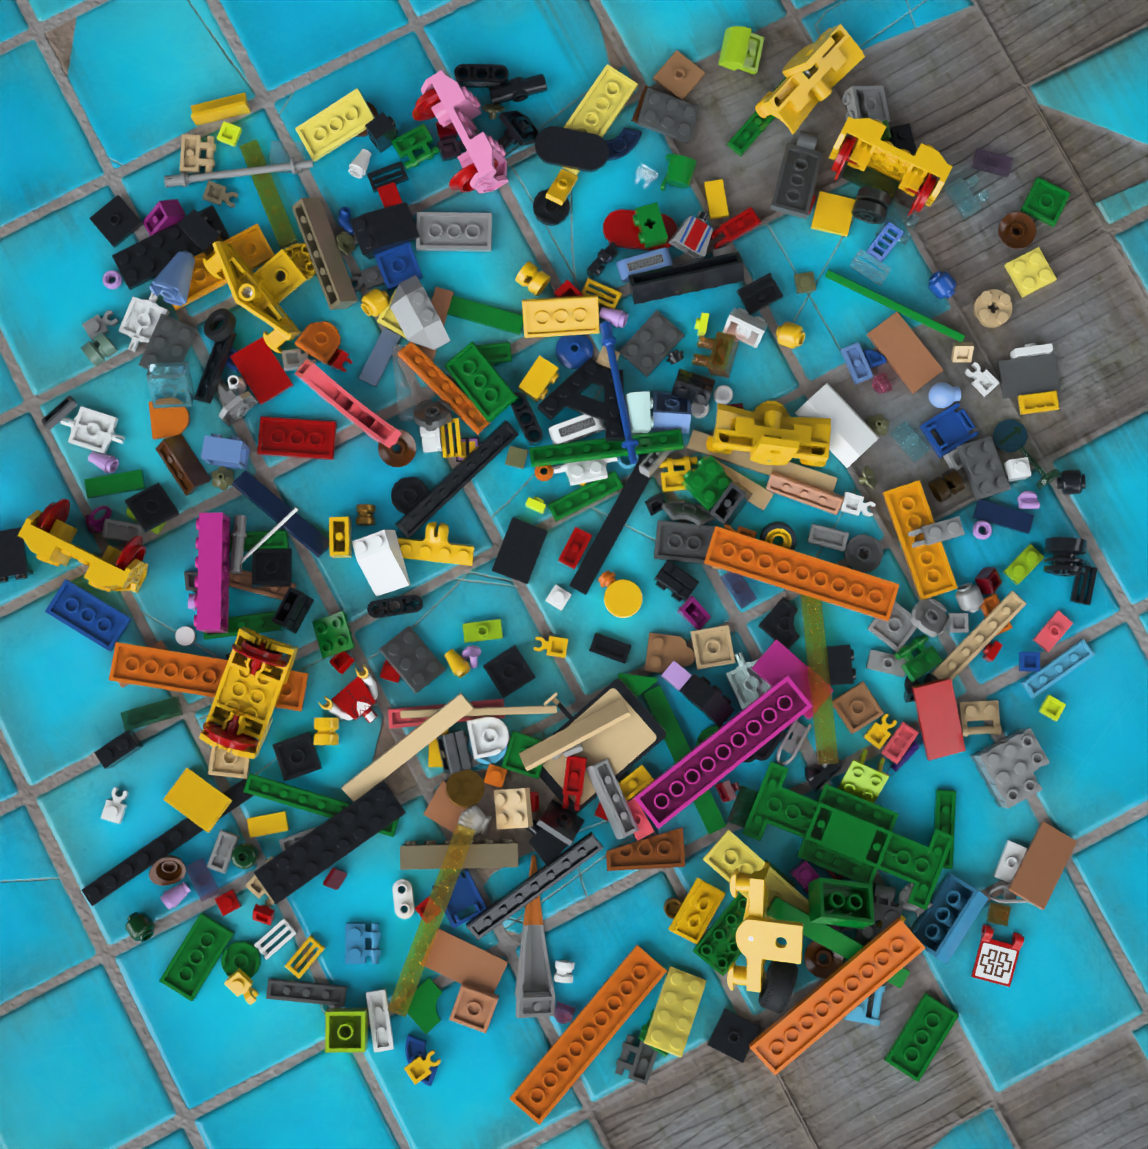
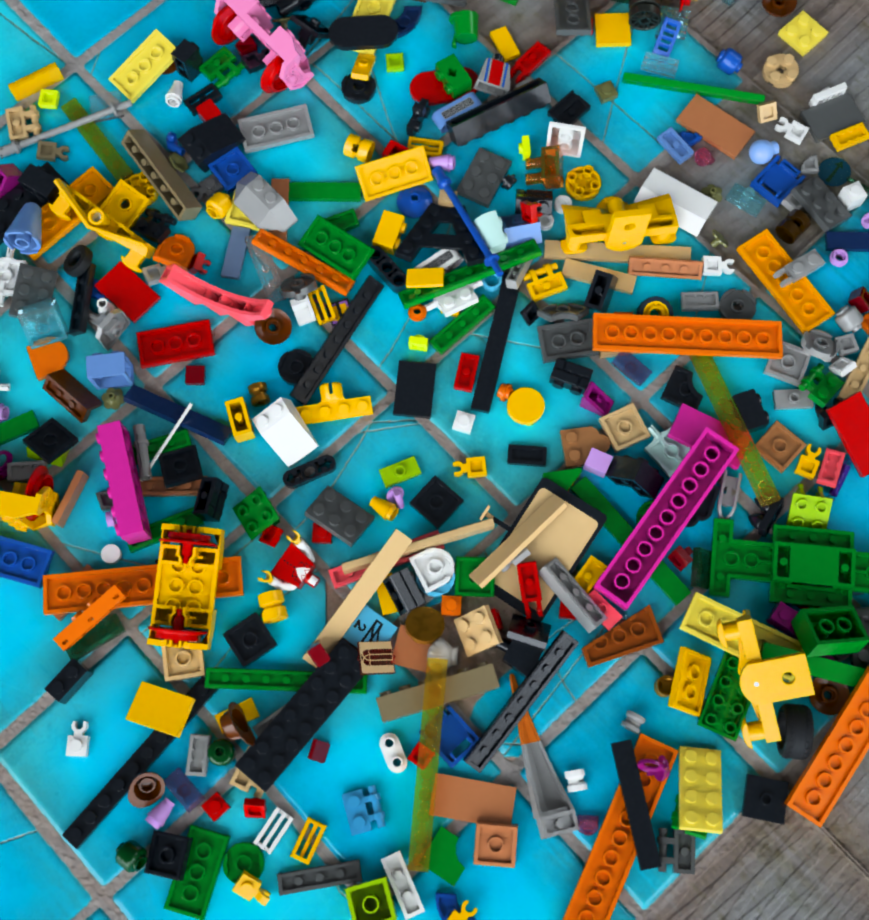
camera: 10 degrees left, 10 degrees down
(145, 699) = (83, 622): none -> orange piece
(158, 571) = (70, 499): none -> nougat tile
(174, 935) = (168, 855): none -> black plate
(264, 836) = (235, 725): none -> reddish brown piece
(300, 310) = (150, 229): none -> black plate
(308, 476) = (195, 375): none -> dark red tile
(356, 790) = (318, 654): none -> dark red slope
(410, 807) = (376, 657): none -> piece
(412, 780) = (369, 627): none -> medium azure tile
(516, 457) = (387, 306): olive tile -> none
(560, 441) = (425, 278): none -> yellow tile
(596, 189) = (395, 62): none -> lime tile
(611, 1009) = (635, 805): none -> black tile
(633, 932) = (633, 722): none -> light grey wheel
(643, 986) = (660, 772): none -> magenta piece
(646, 173) = (435, 38): clear tile -> none
(683, 400) = (529, 211): none -> red tile
(707, 482) = (572, 279): green plate -> none
(750, 378) = (583, 183): none -> yellow tile
(790, 335) = (607, 136): yellow head -> none
(946, 644) = (842, 366): none -> white tile
(987, 422) = (810, 166): none -> light grey tile

